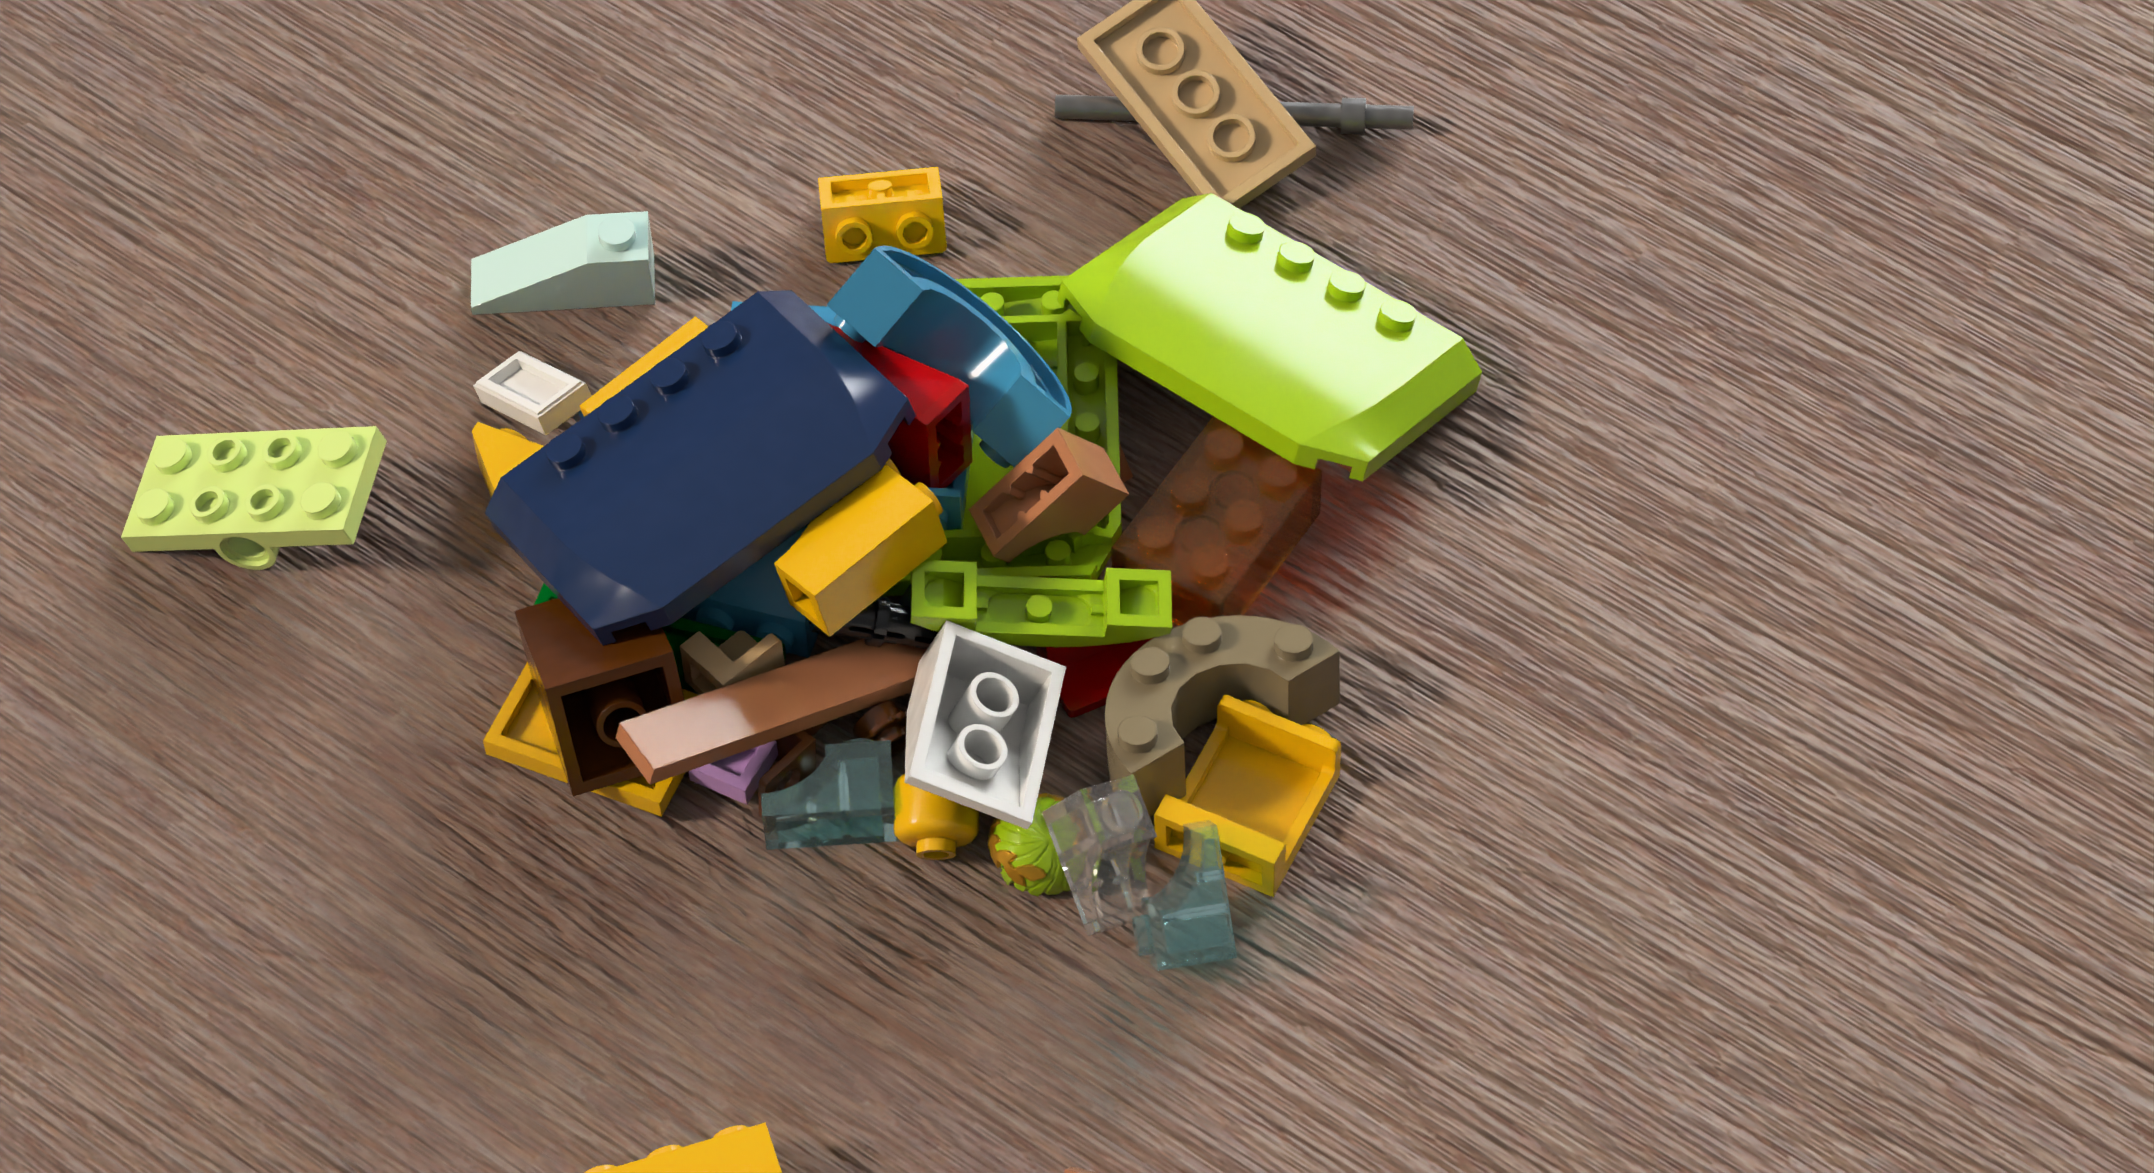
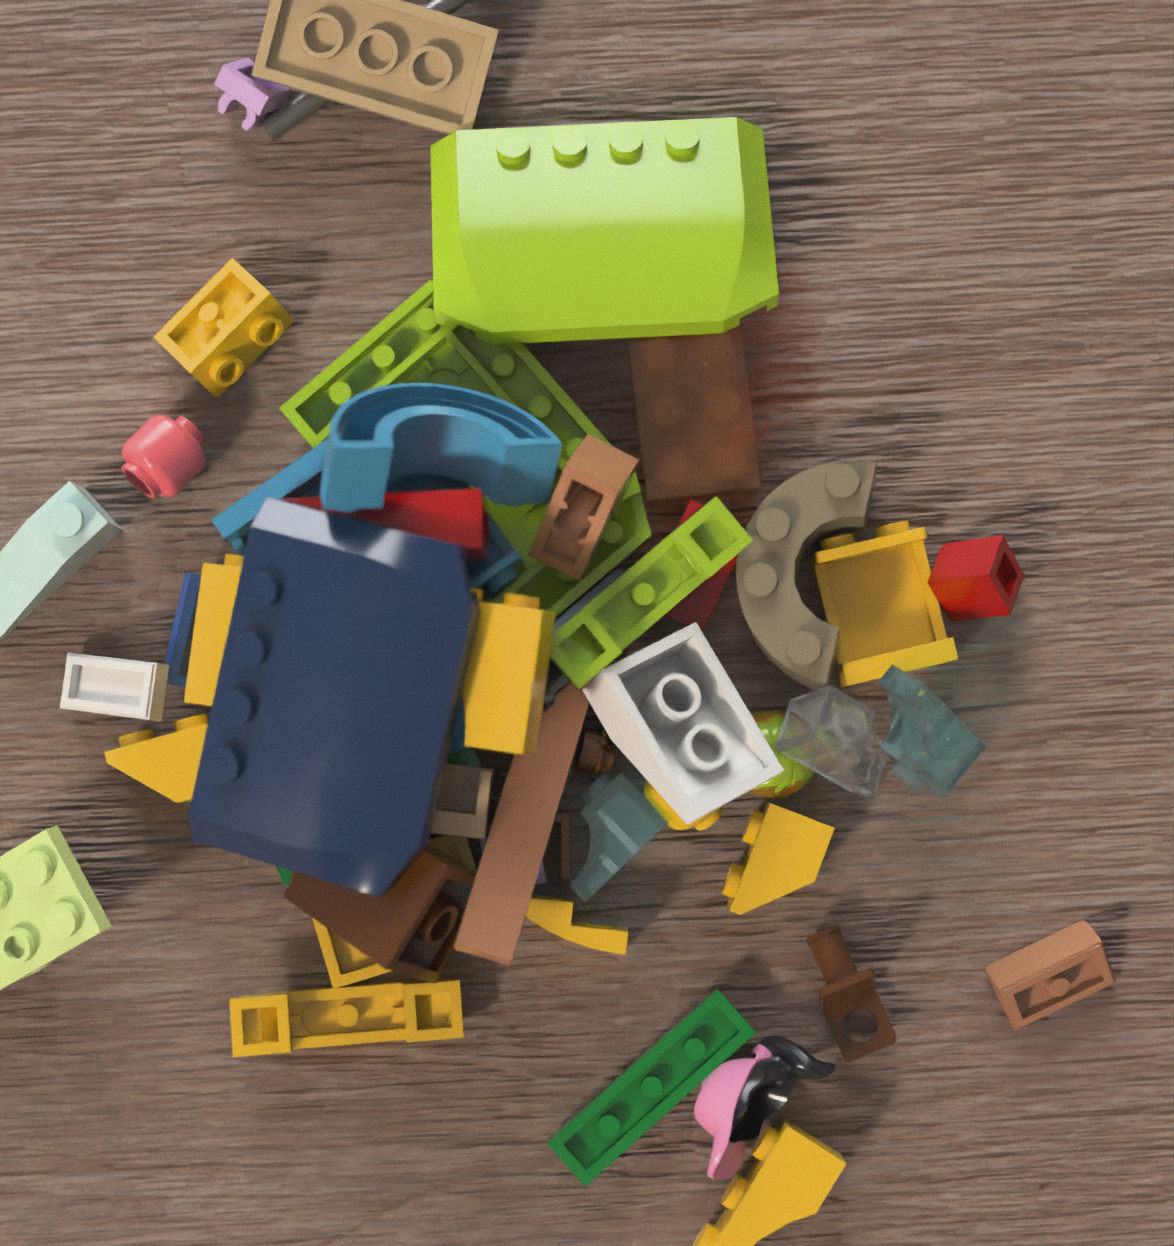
camera: 40 degrees left, 30 degrees up
(467, 776) = (346, 1016): none -> yellow slope
(677, 1025) = (650, 1087): none -> green plate
(733, 840) = (556, 915): none -> yellow slope
(740, 261) = (163, 456): none -> coral head
(748, 1085) = (745, 1093): none -> hair
(923, 1078) = (847, 992): none -> reddish brown bracket
(964, 924) = (780, 858): none -> yellow slope
(1066, 65) = (255, 94): none -> lavender tile
(1355, 833) = (976, 578): none -> red panel

